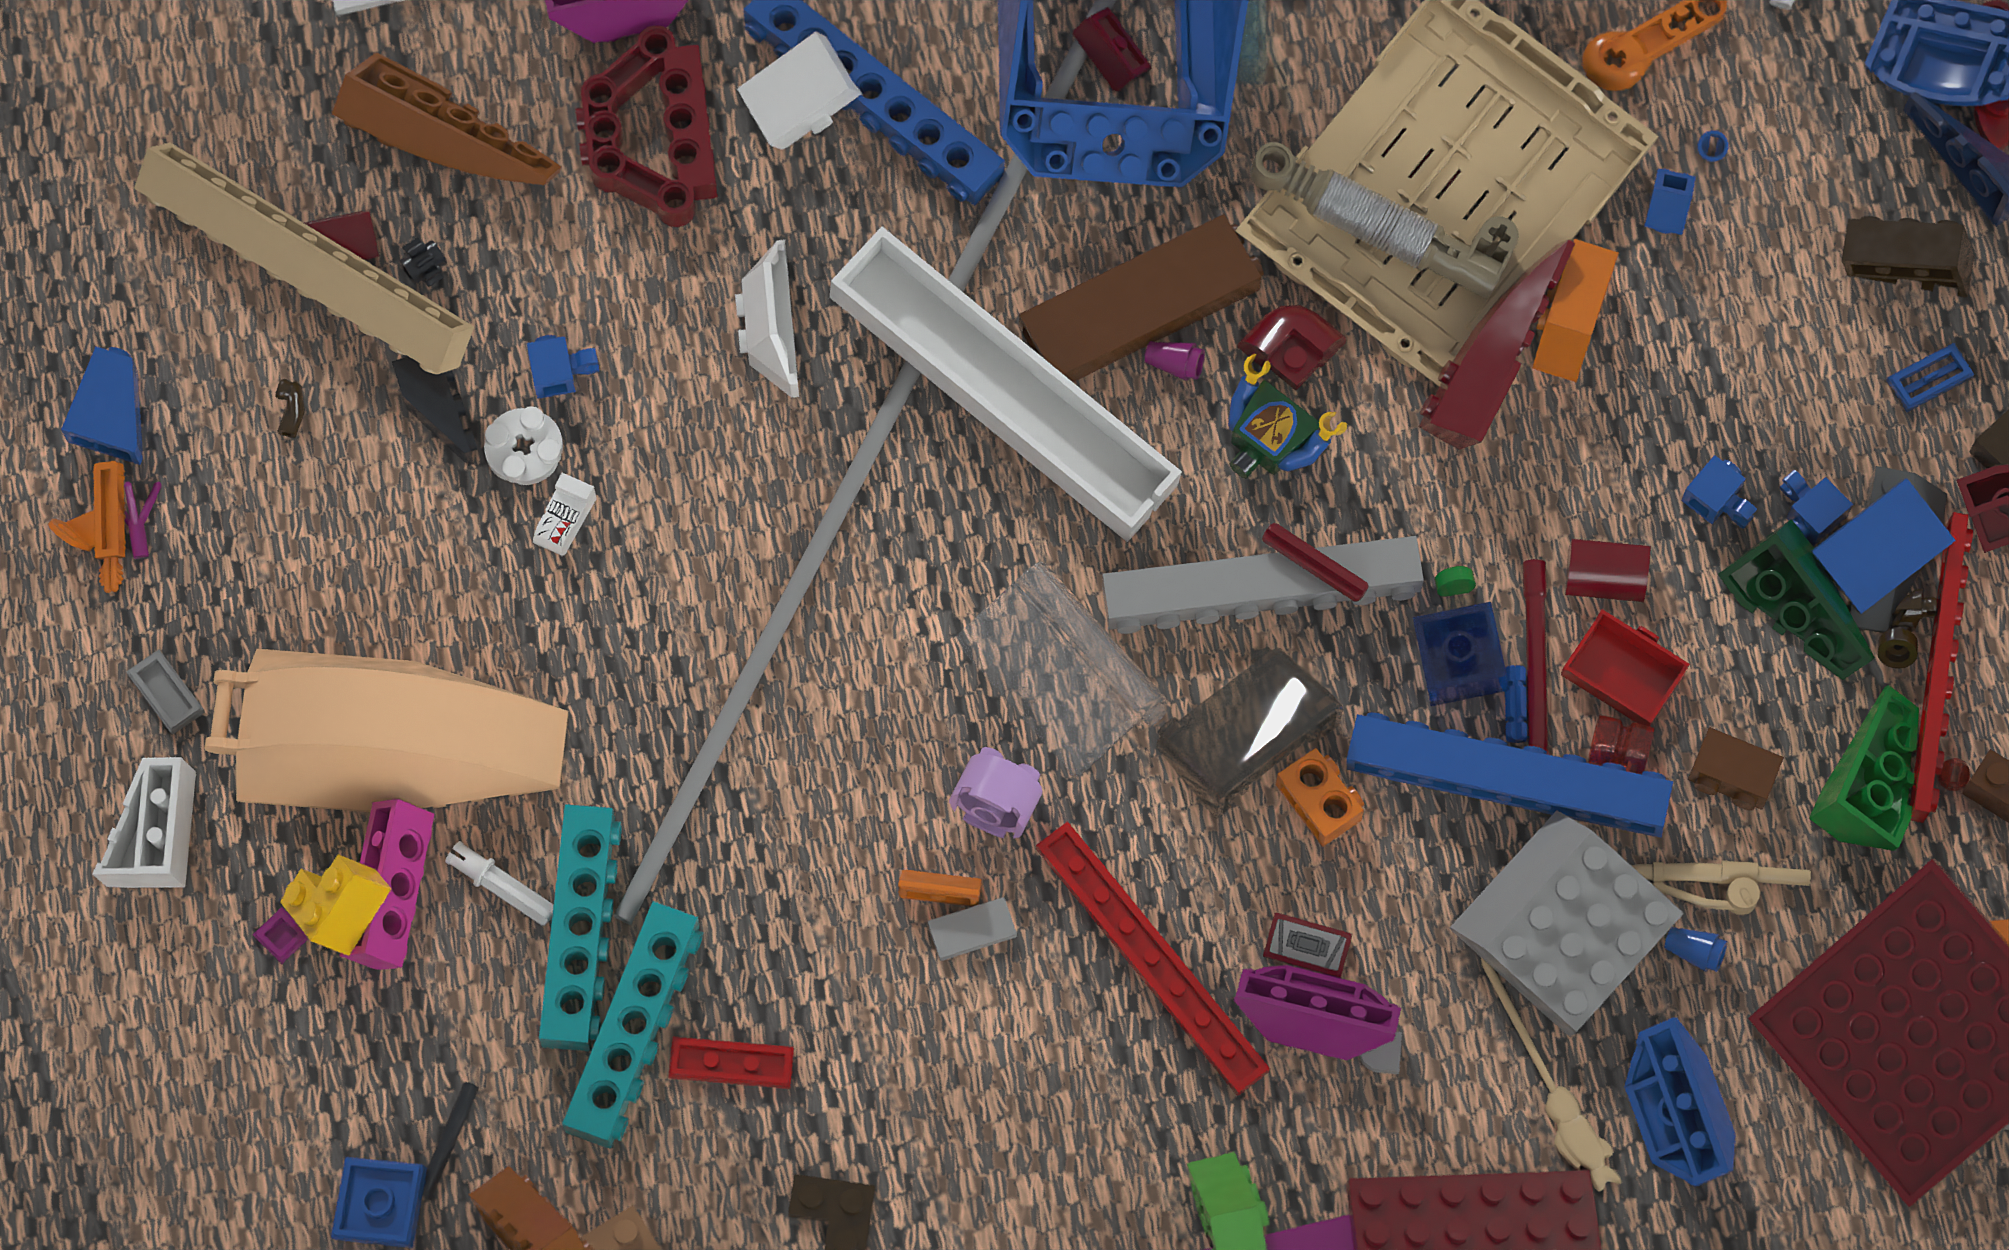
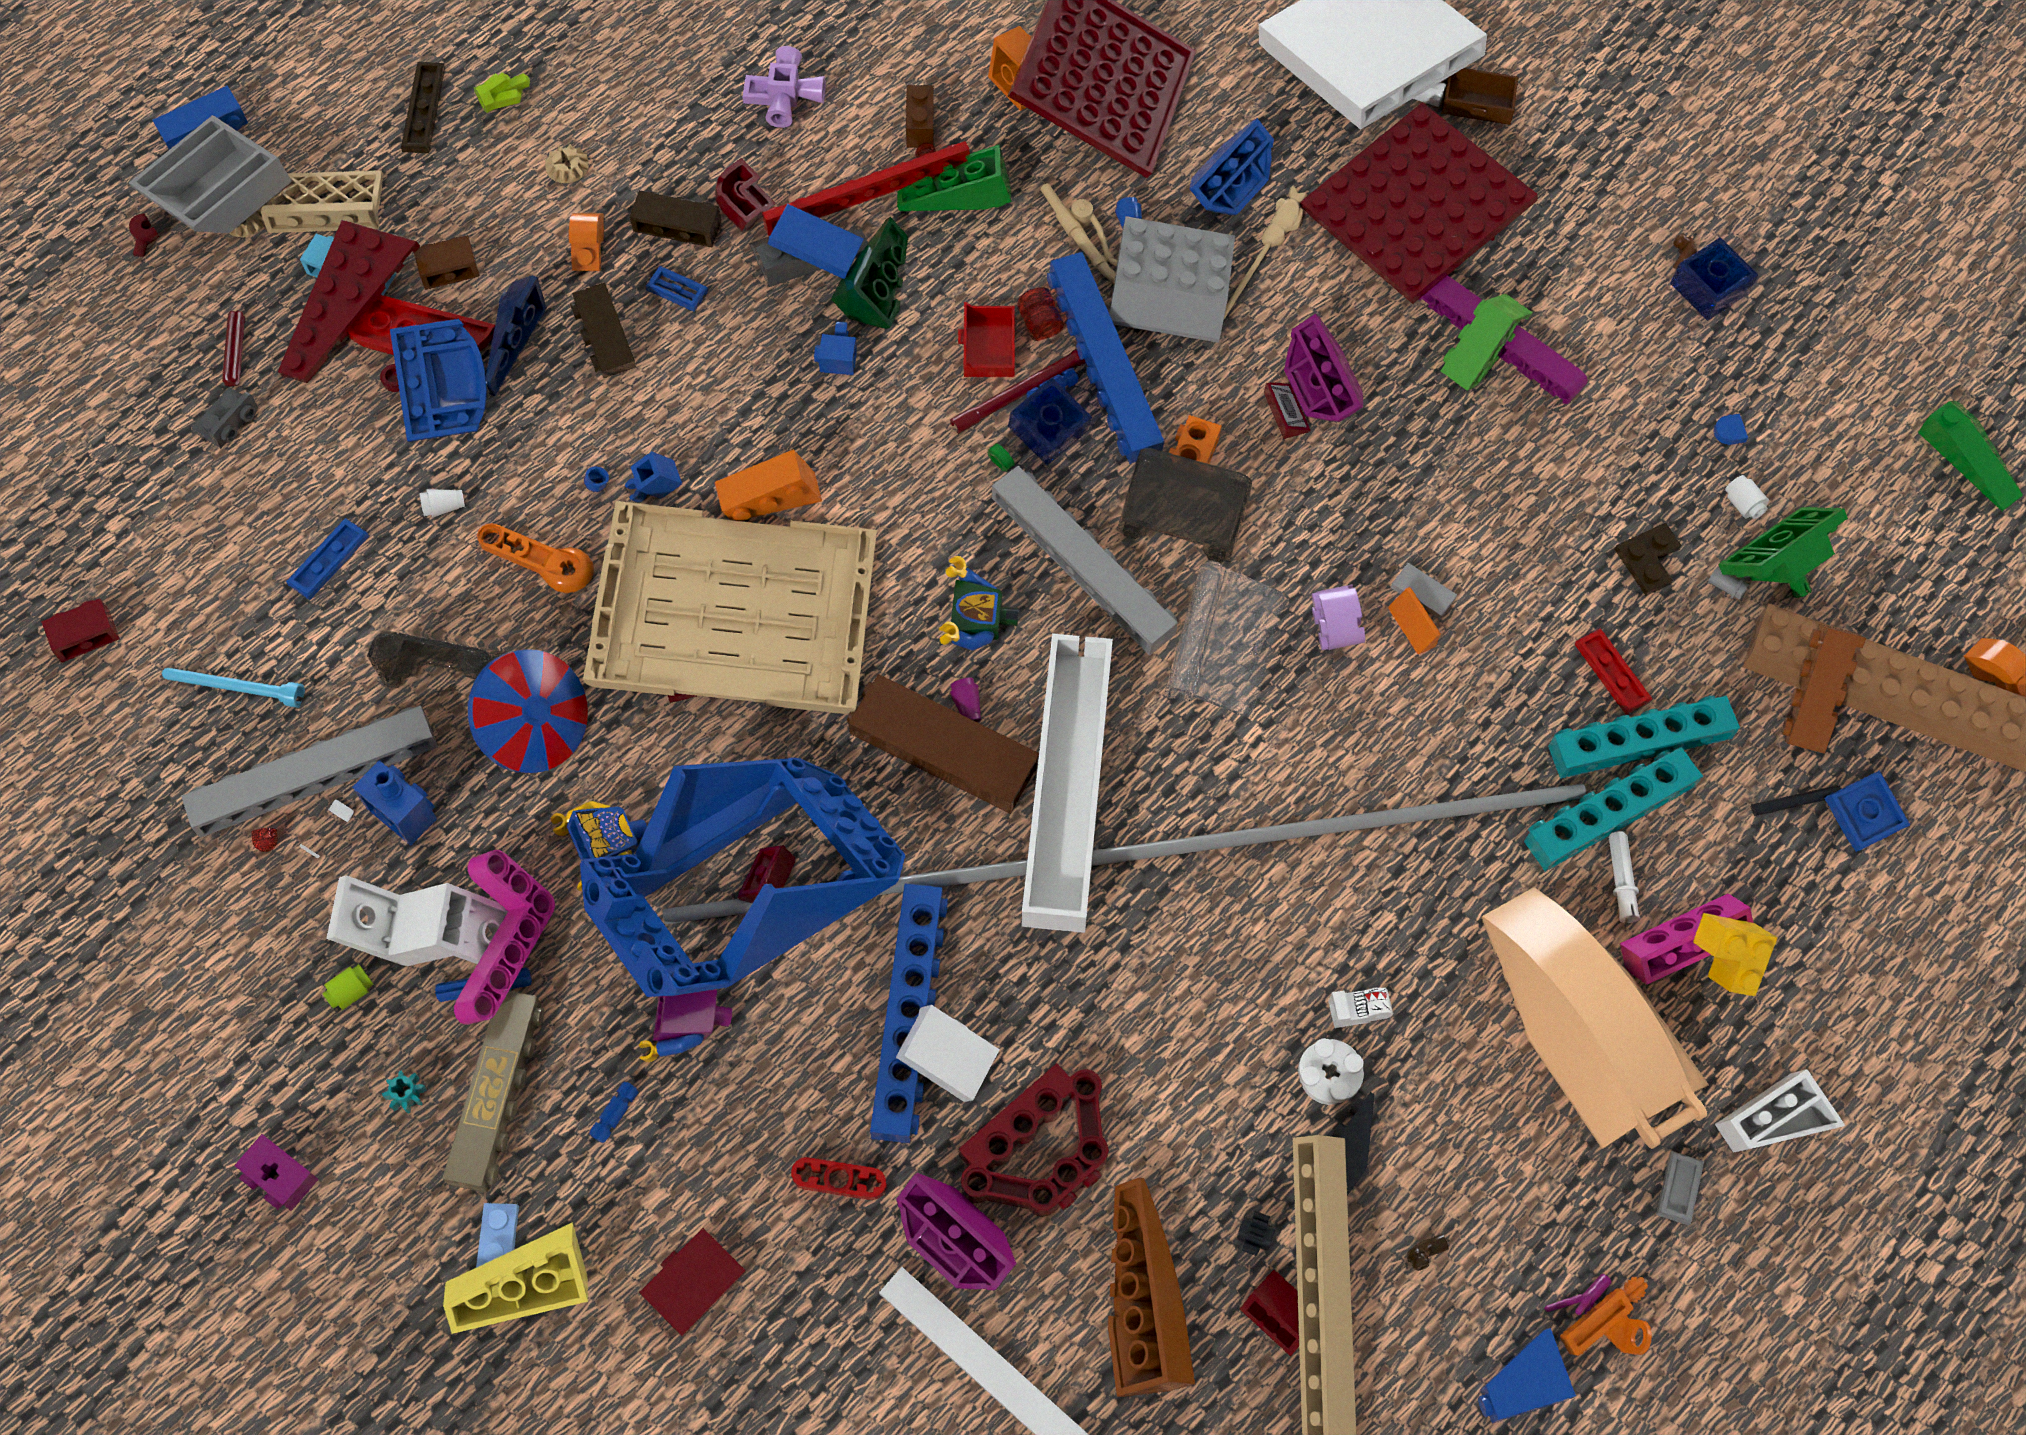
camera: 125 degrees left, 5 degrees down
(280, 935) = (1769, 993): magenta tile -> none
(554, 366) = (1262, 1086): blue brick -> none
(769, 320) = (1123, 968): white wedge -> none
(1152, 958) = (1361, 485): red plate -> none
(1293, 342) = (906, 638): dark red brick -> none
(1315, 562) = (1055, 525): dark red axle -> none
(1391, 230) = (791, 609): piece -> none
(1486, 363) = (843, 506): dark red wedge -> none
(1607, 570) = (930, 383): dark red brick -> none
(1735, 770) = (1008, 252): reddish brown brick -> none
(1816, 509) = (811, 296): blue brick -> none
(1898, 645) = (844, 218): dark brown arm -> none

